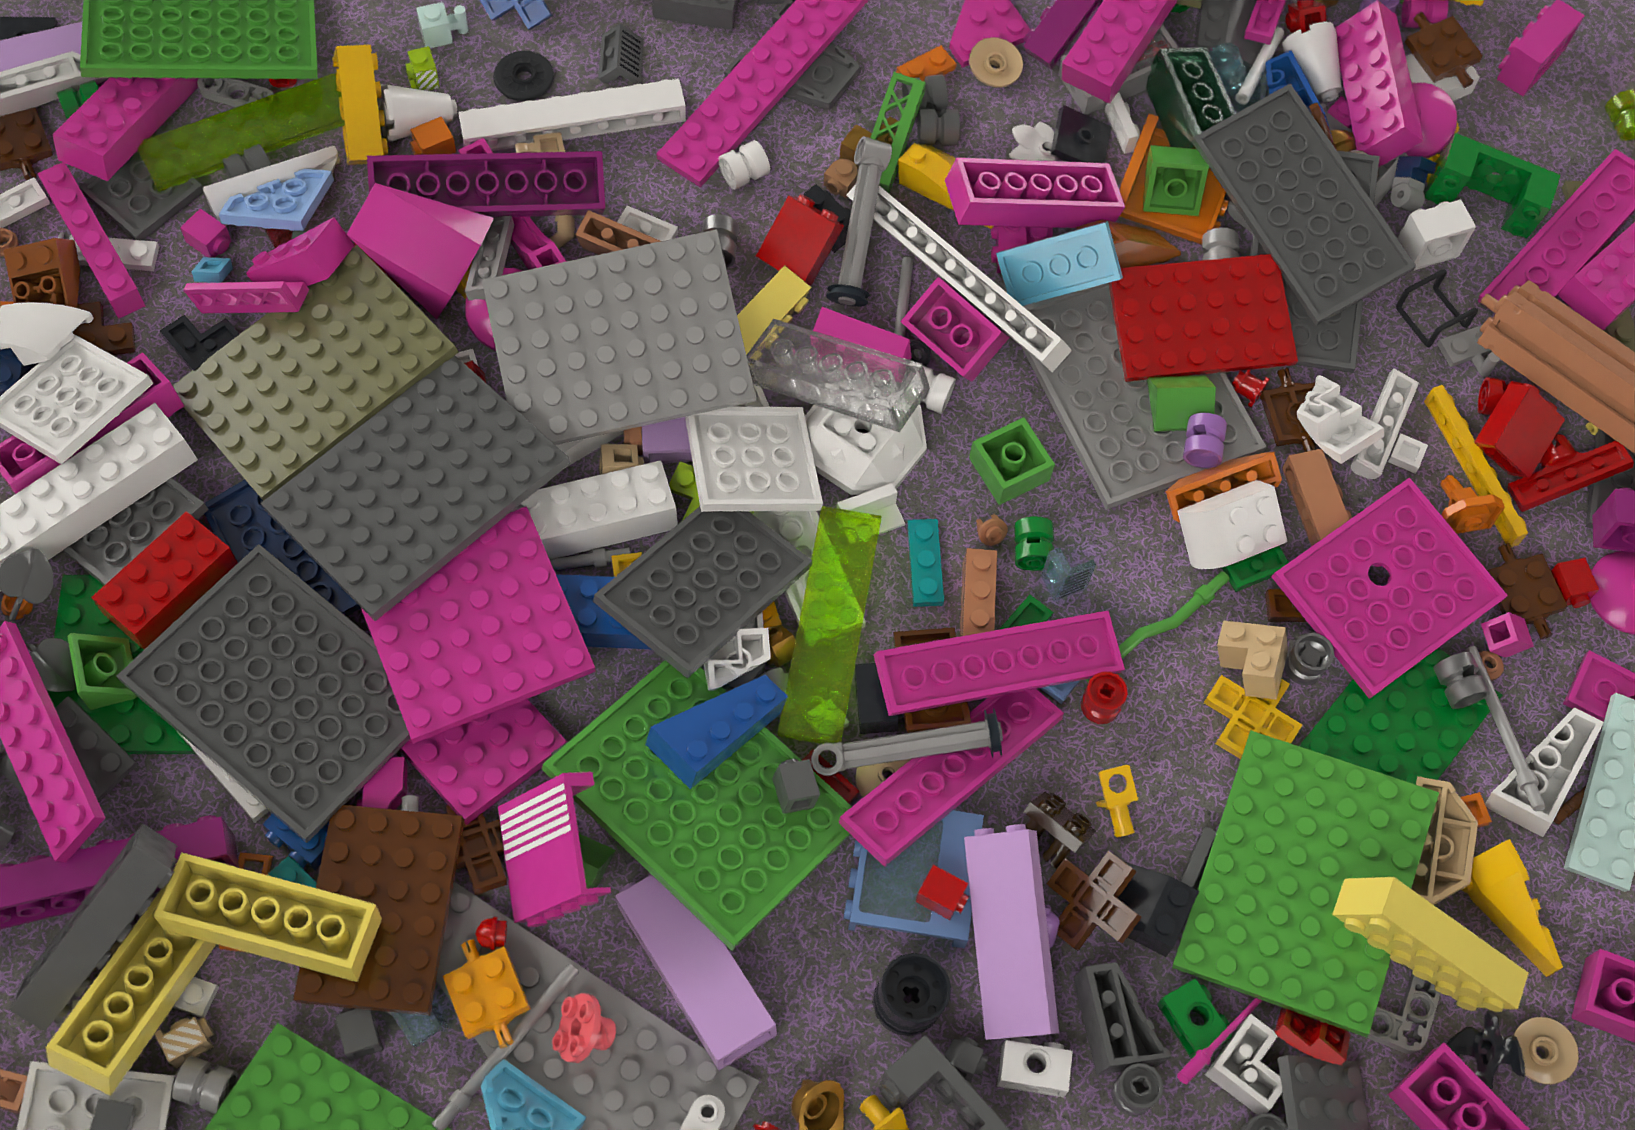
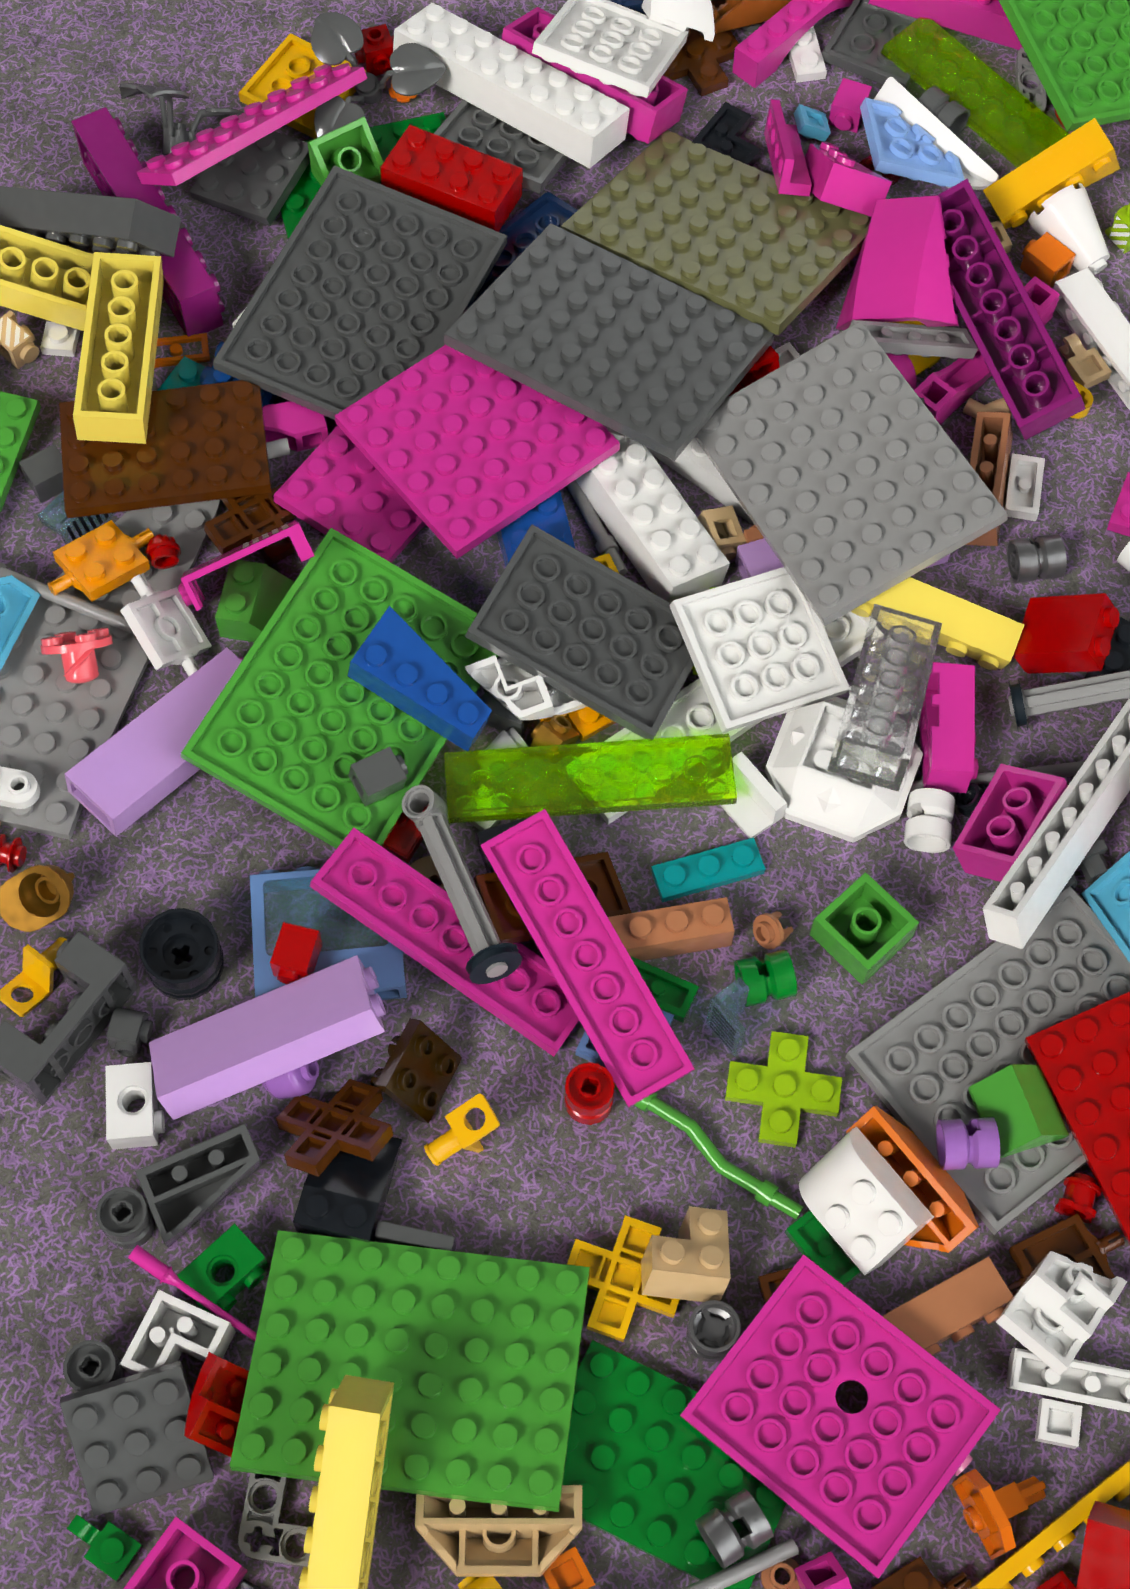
camera: 80 degrees right, 0 degrees up
(579, 946) = (165, 627): none -> white plate
(1122, 560) = (783, 1089): none -> lime plate

